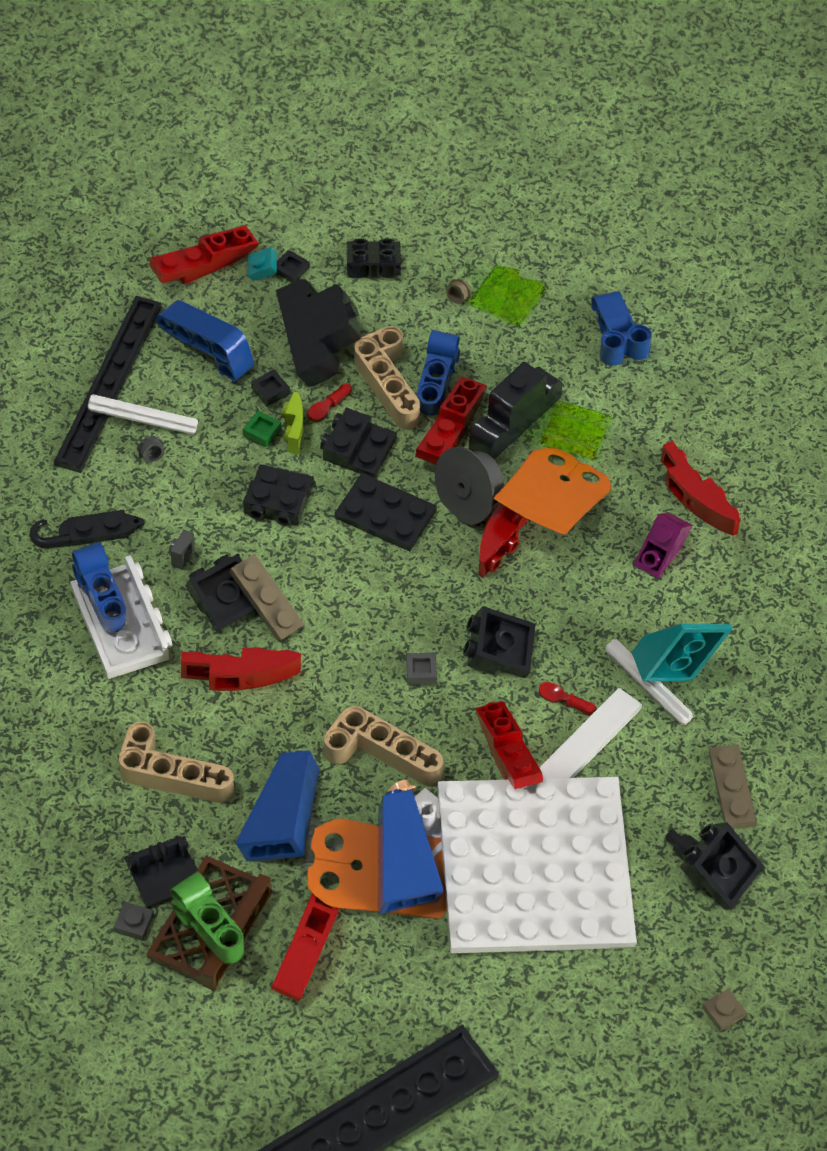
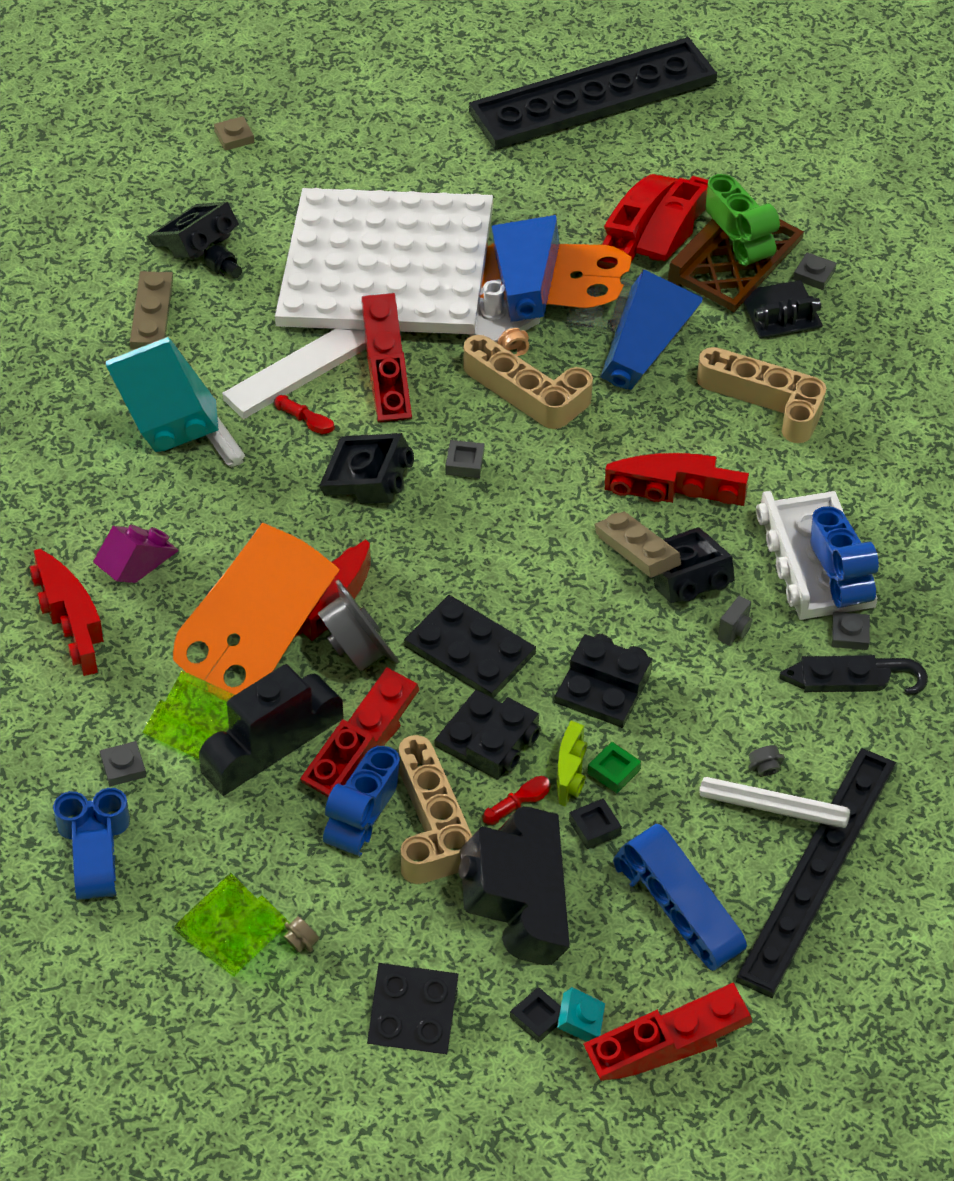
camera: 170 degrees left, 5 degrees down
(267, 953) = (673, 218): none -> red slope
(617, 391) = (122, 763): none -> dark grey plate

